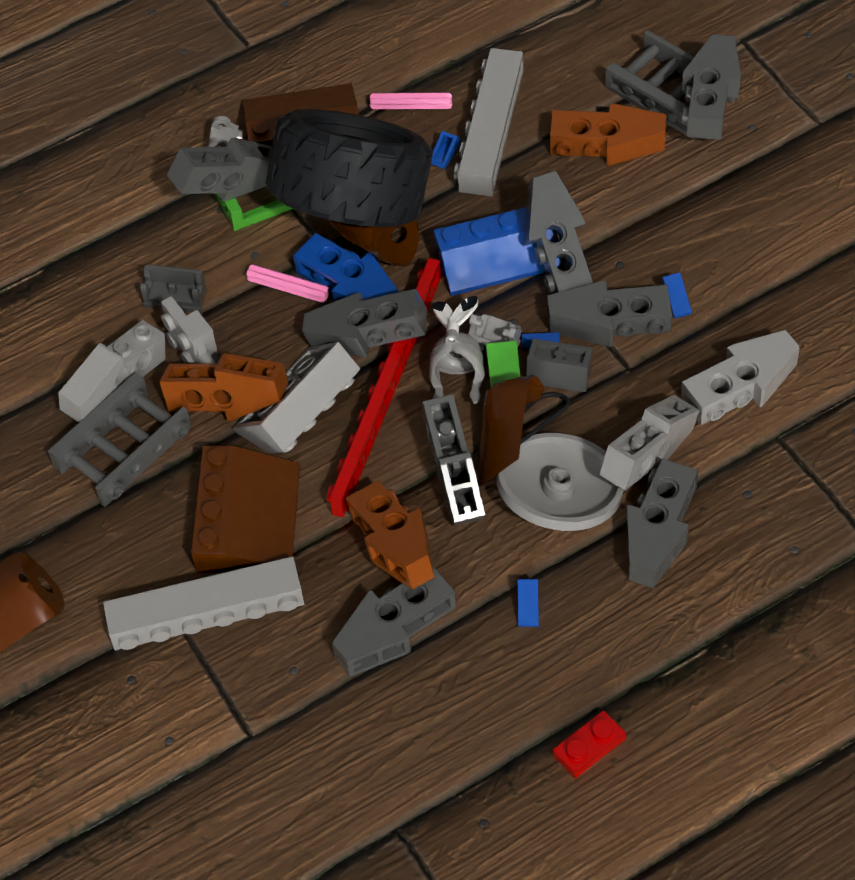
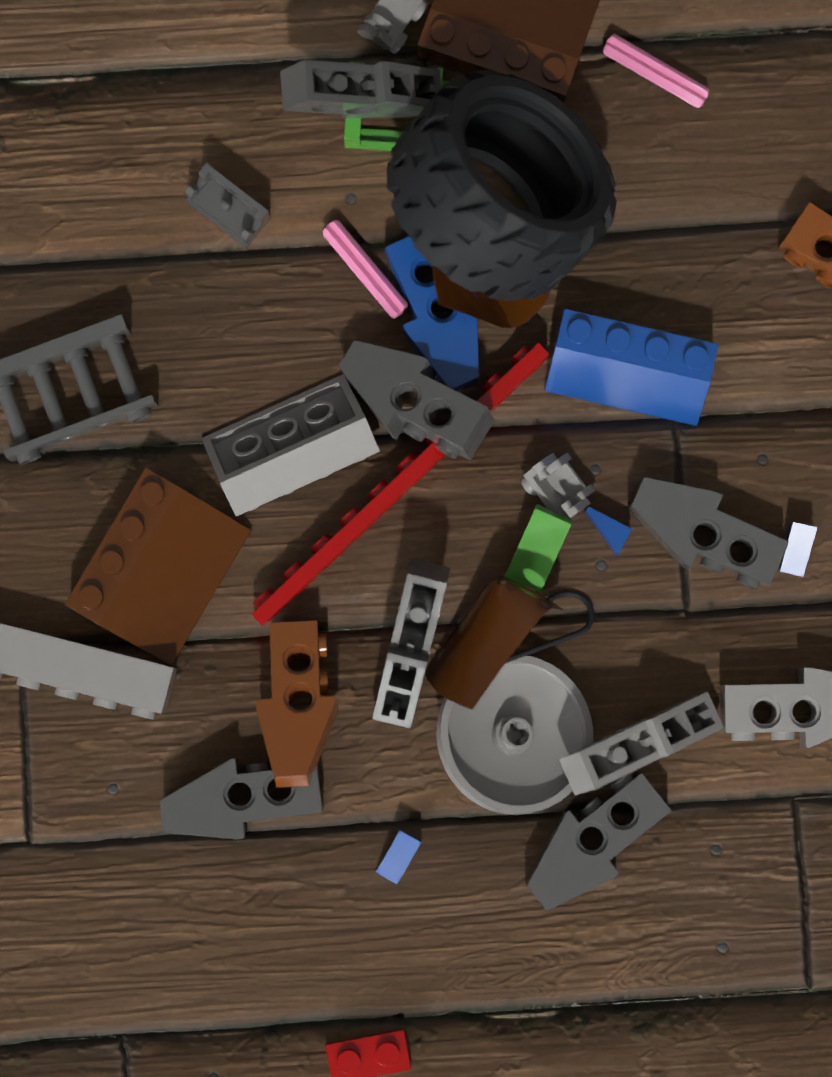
camera: 20 degrees right, 30 degrees up
(109, 367) = (97, 297): light grey brick -> none
(189, 334) = (209, 307): light grey plate -> none
(231, 385) = (210, 395): dark orange brick -> none
(445, 149) = (655, 172): blue piece -> none
(456, 350) = (501, 488): light grey hair -> none
(490, 122) = (732, 164): light grey brick -> none
(553, 208) = (703, 373): dark grey brick -> none
(560, 364) = (607, 571): dark grey hinge -> none

